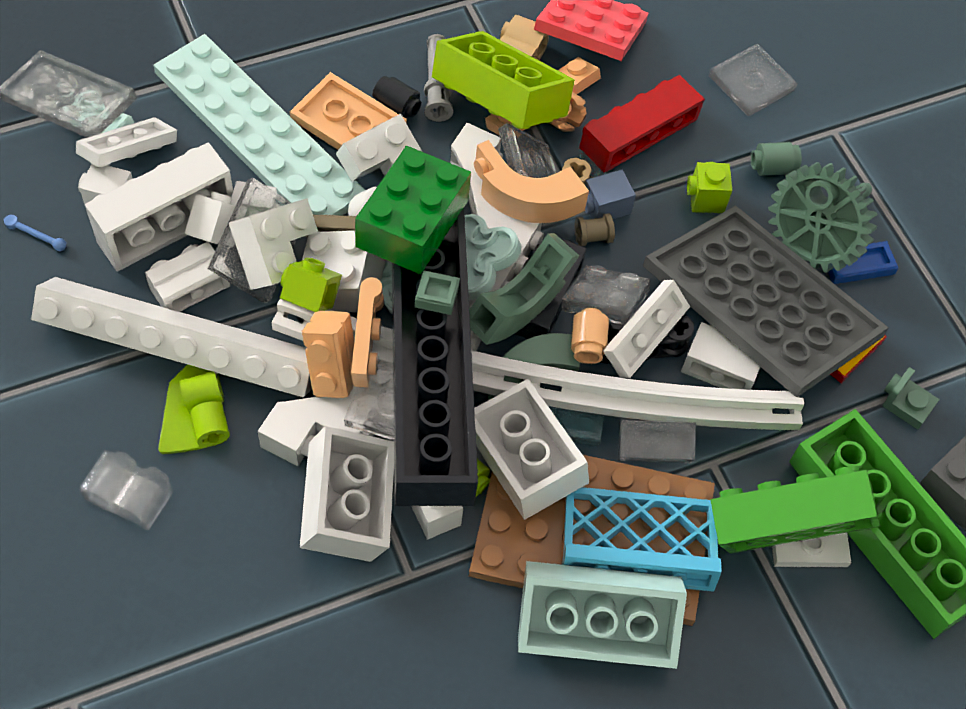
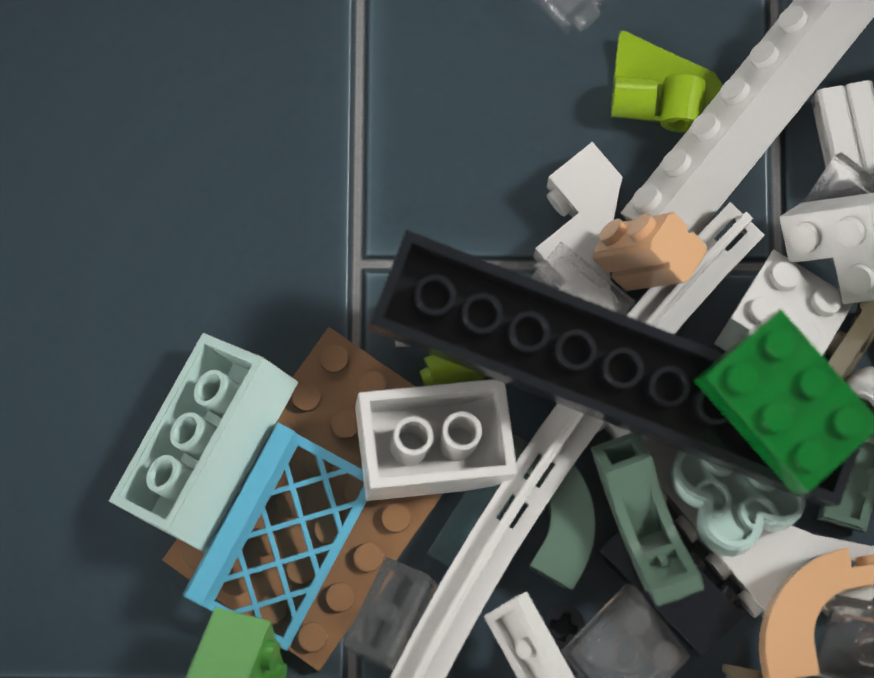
camera: 120 degrees right, 20 degrees up
(310, 285) = (755, 259): lime brick -> none
(348, 494) = (468, 208): white brick -> none
(367, 329) = (653, 296): light nougat plate -> none
(437, 292) = (653, 386): sand green tile -> none
(589, 335) = (560, 590): light nougat brick -> none

